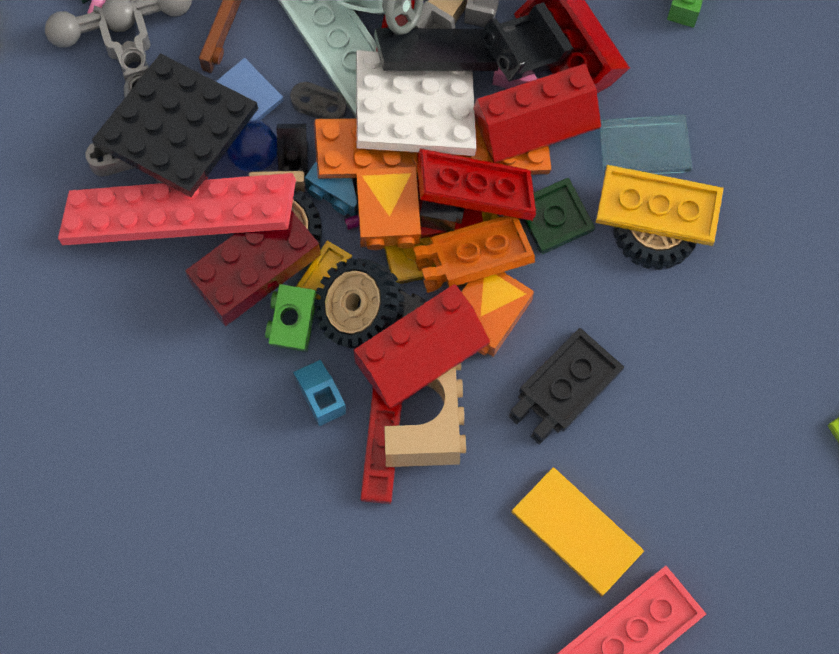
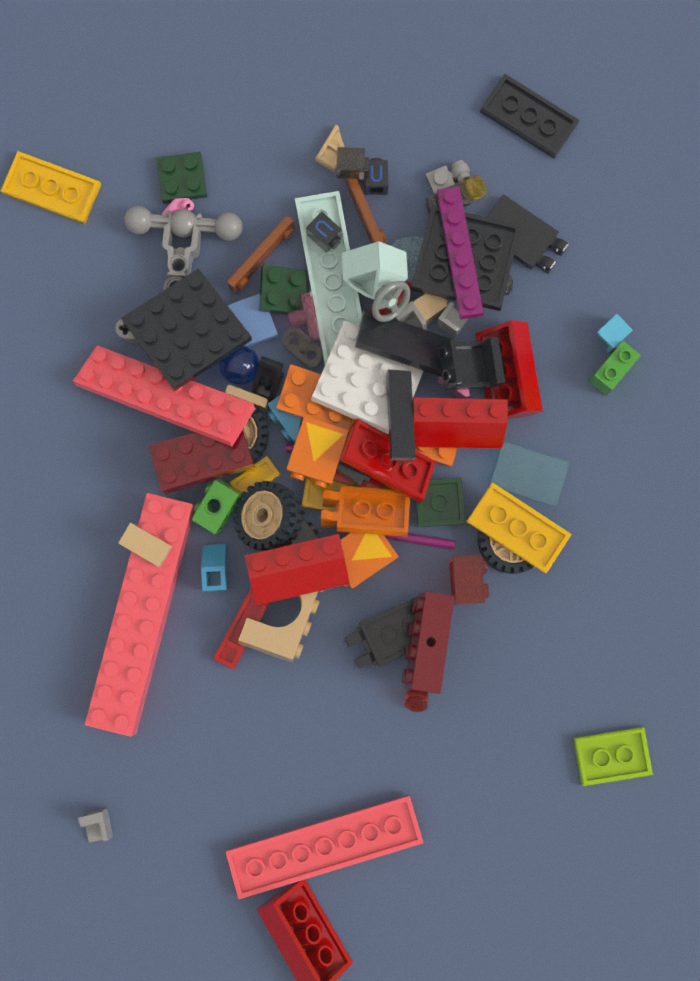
camera: 25 degrees right, 10 degrees up
(226, 388) = (145, 545): none -> tan tile
(251, 482) = (139, 621): none -> coral brick
(268, 46) = (281, 289): none -> dark green plate
(309, 62) = (306, 316): none -> clear pink tile
(470, 125) = (400, 415): none -> black tile
(551, 267) = (425, 540): none -> magenta bar
(577, 531) = (358, 743): yellow tile -> none
(612, 372) = (432, 625): none -> dark red brick
(626, 286) = (468, 580): none -> clear red brick
(626, 452) = (416, 700): none -> clear red tile

